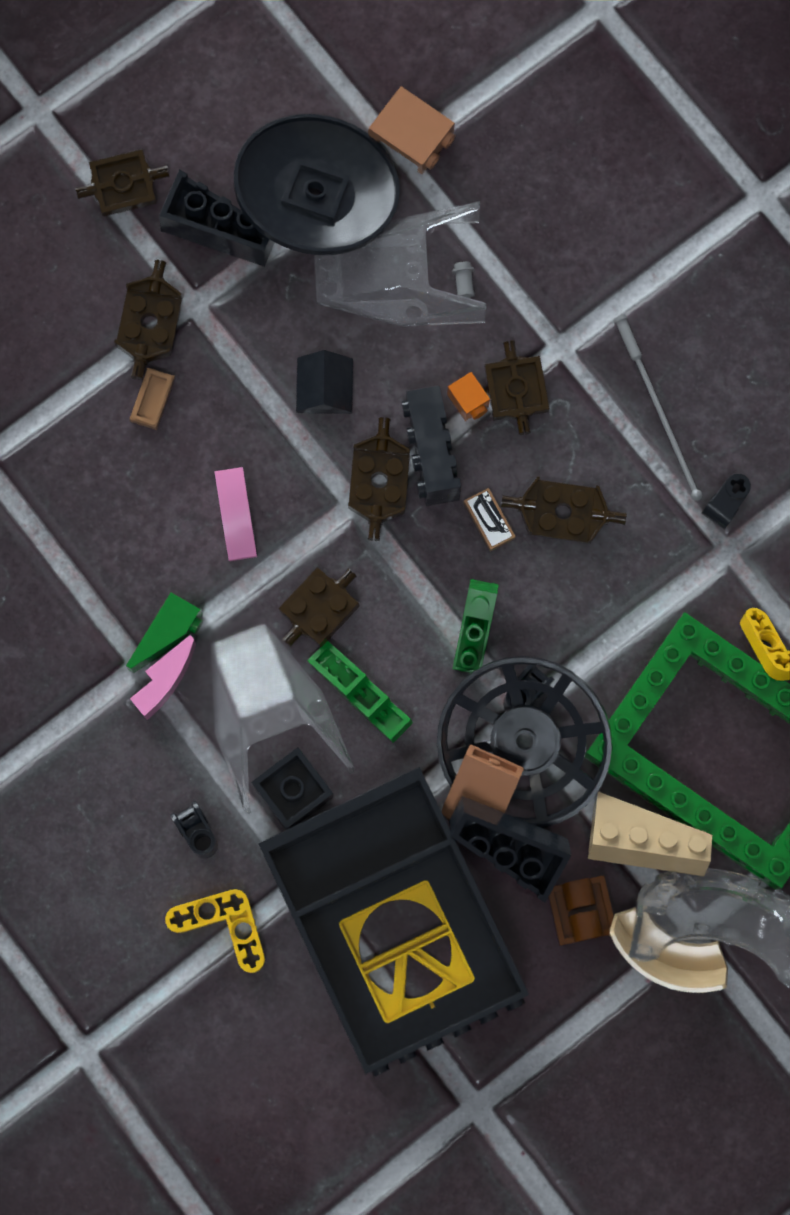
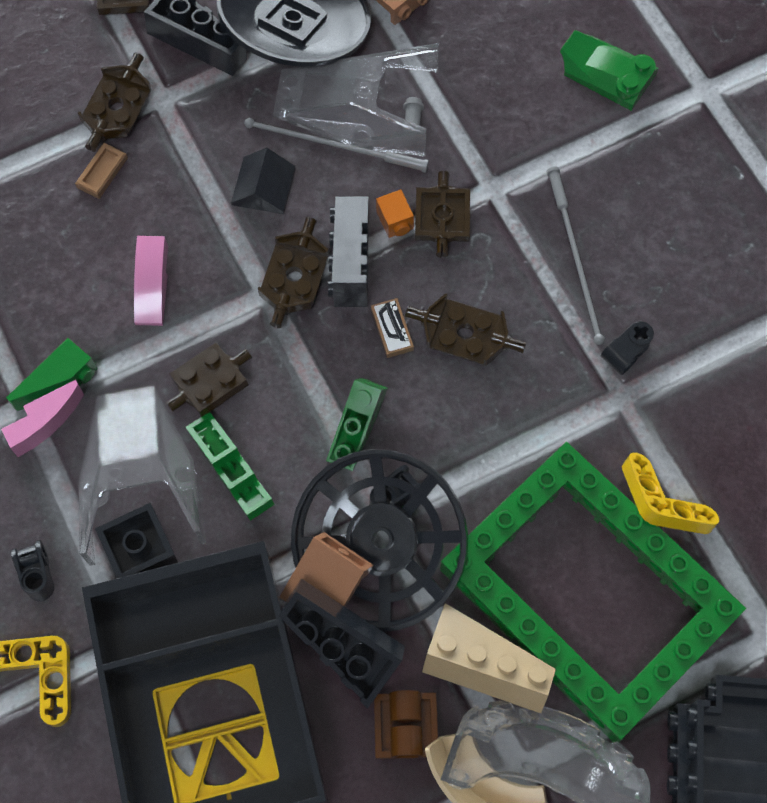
camera: 15 degrees right, 10 degrees down
(448, 332) = (389, 157): none -> light grey piece
(656, 190) = (607, 69): none -> green slope

